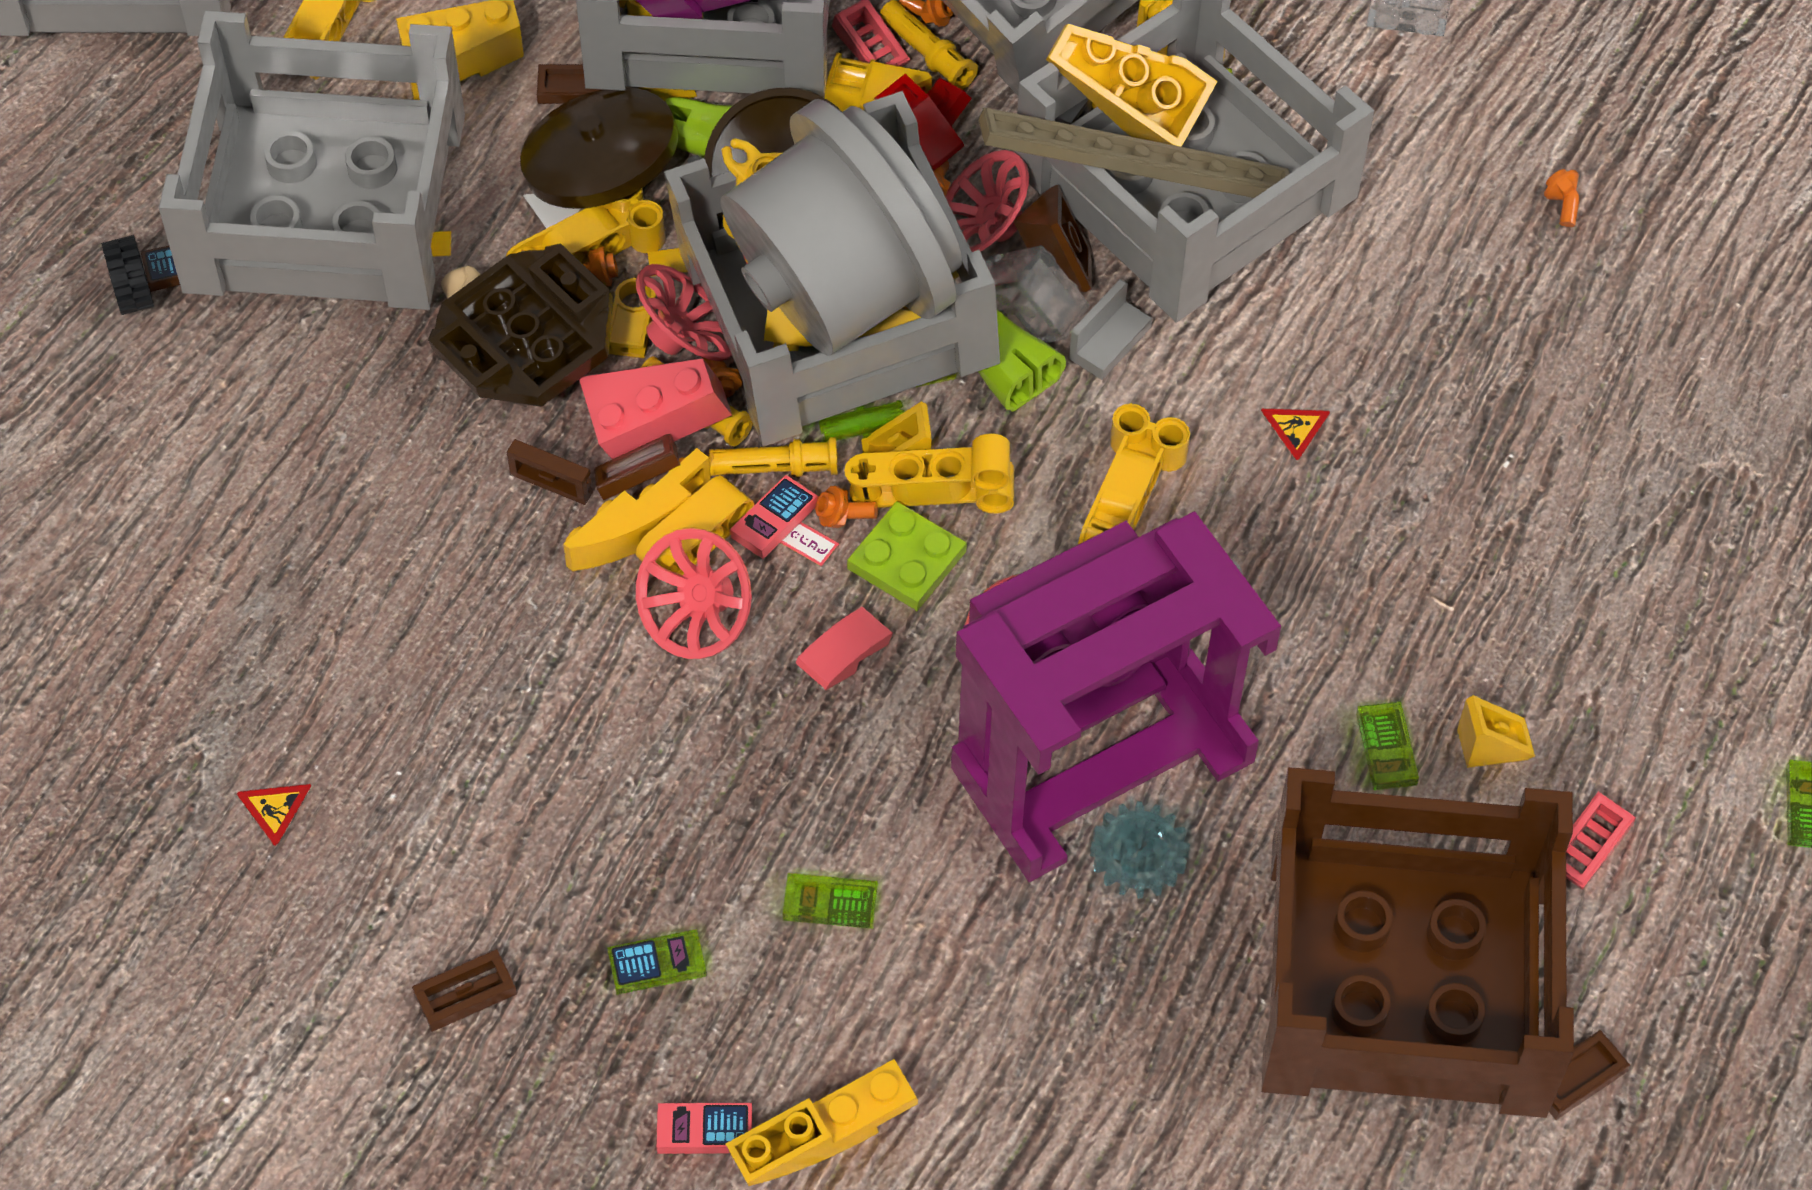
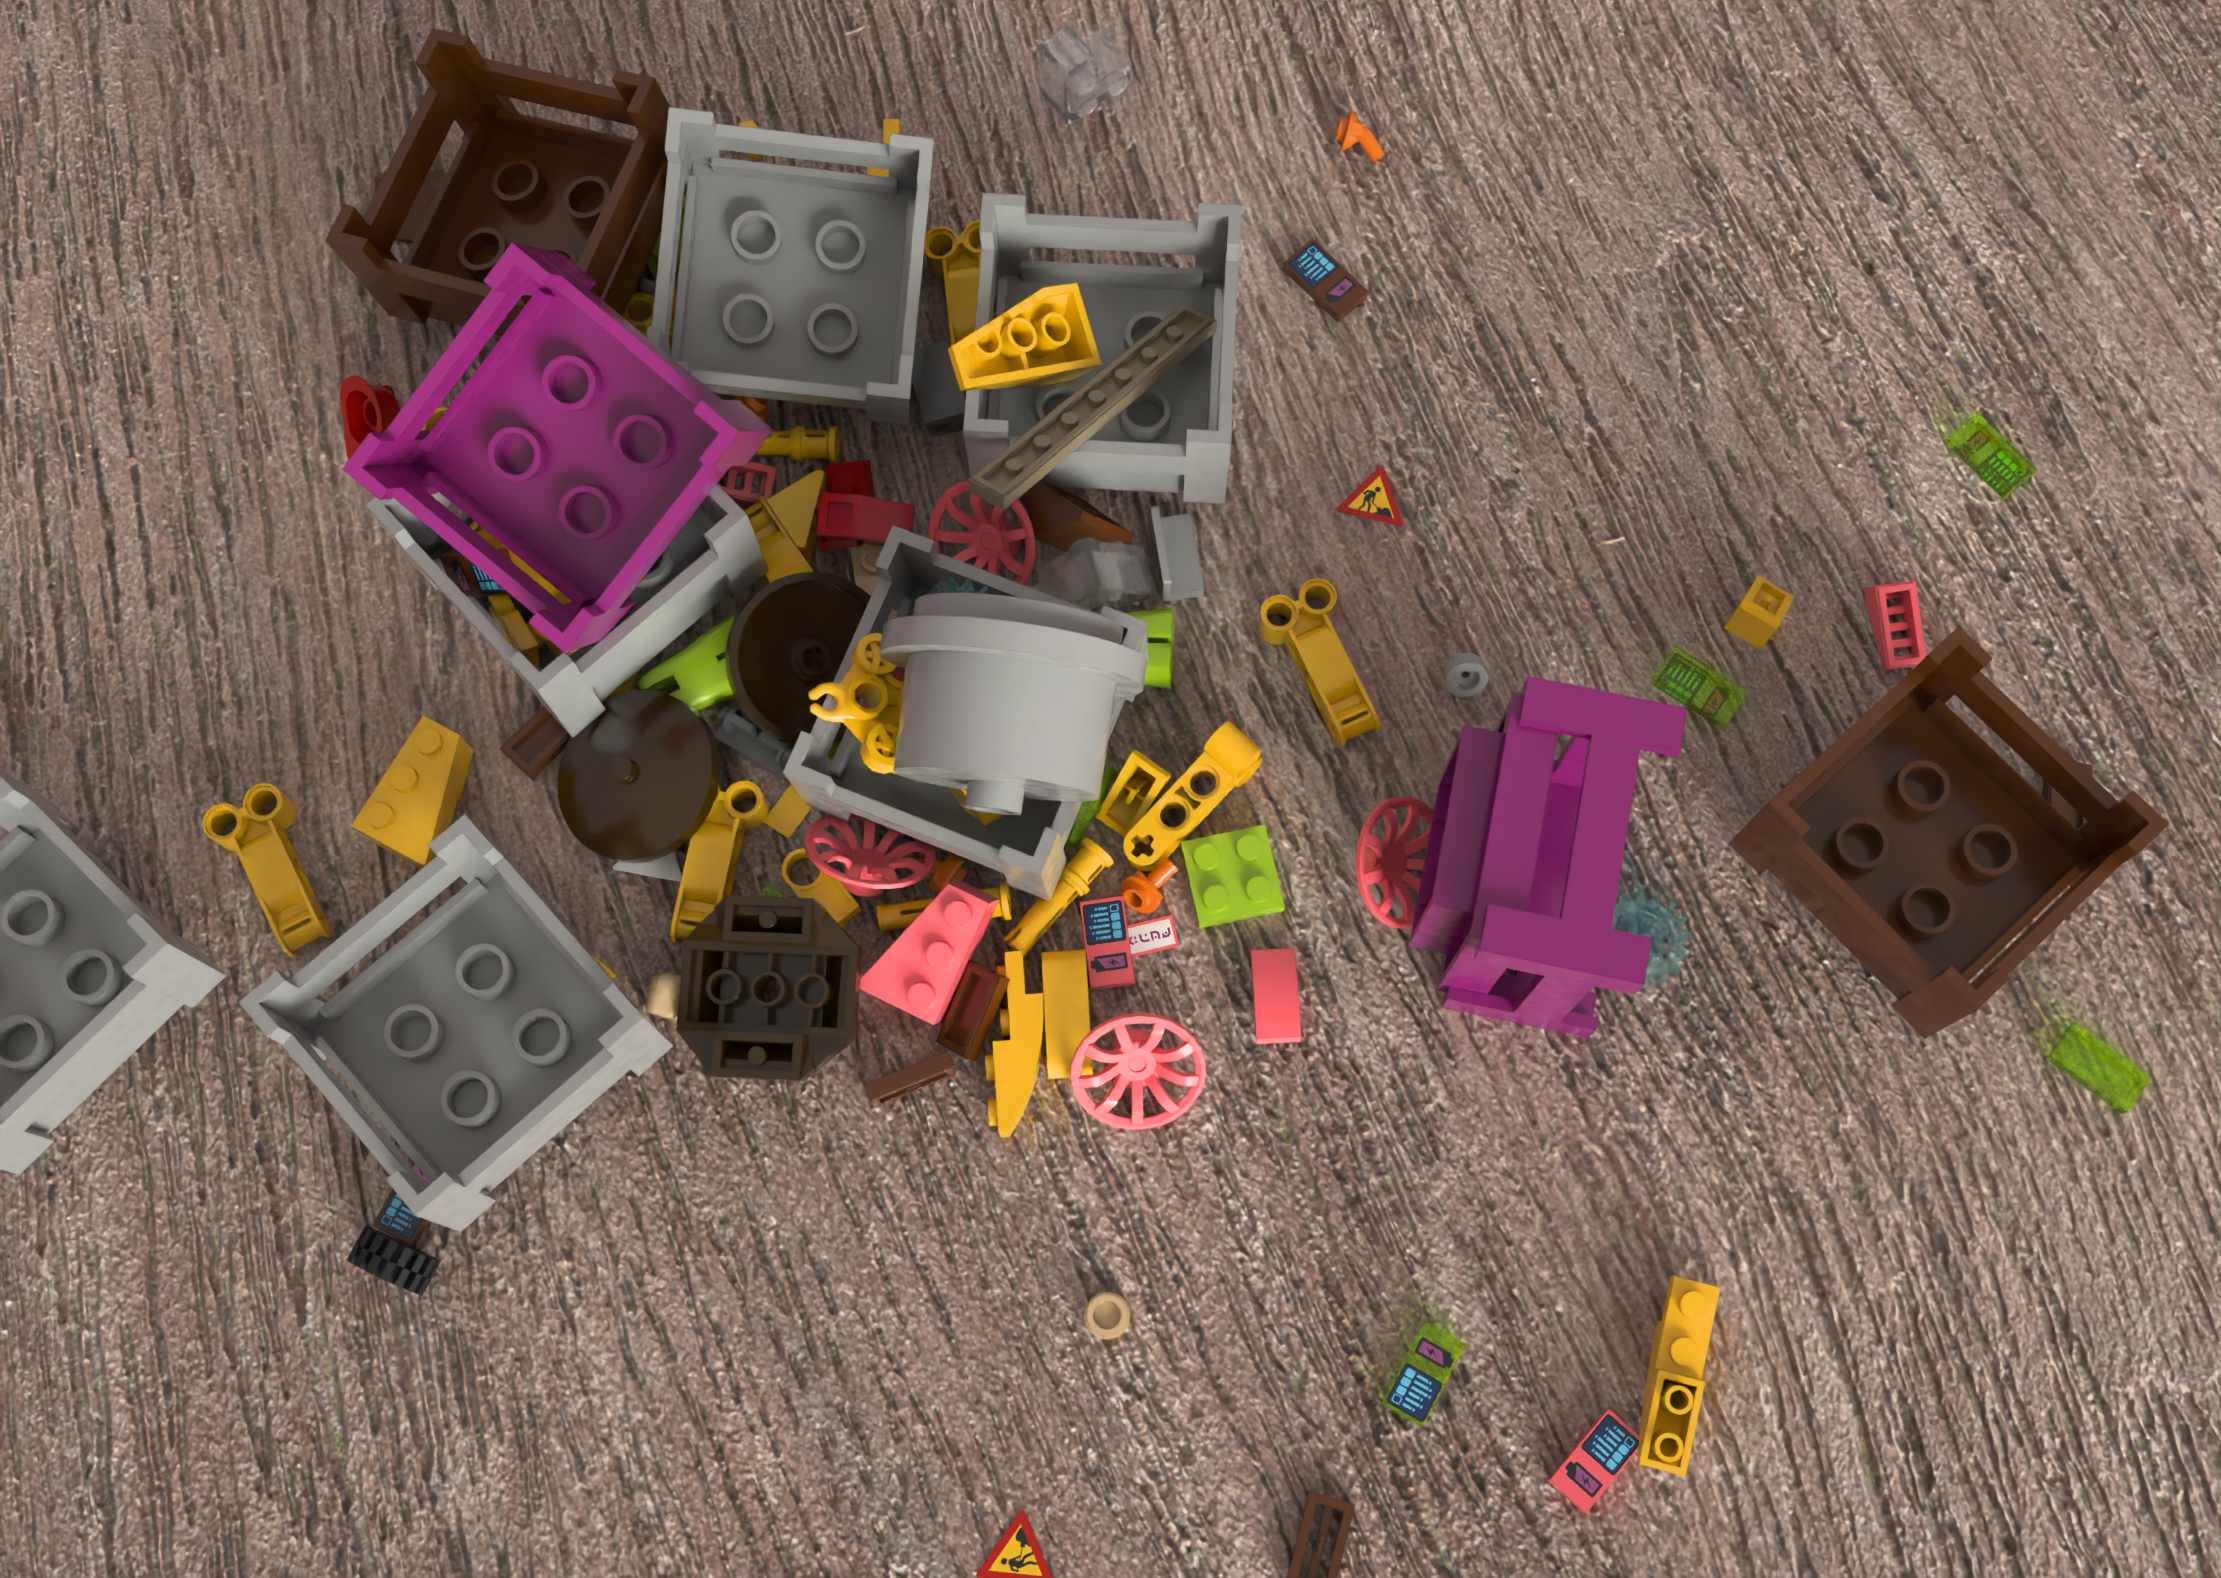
camera: 45 degrees left, 15 degrees up
(501, 727) = (1107, 1315): none -> tan tile
(602, 265) = (750, 873): orange plate -> none
(830, 900) = (1481, 1197): clear neon green tile -> none
(1430, 264) = (1325, 280): none -> tile

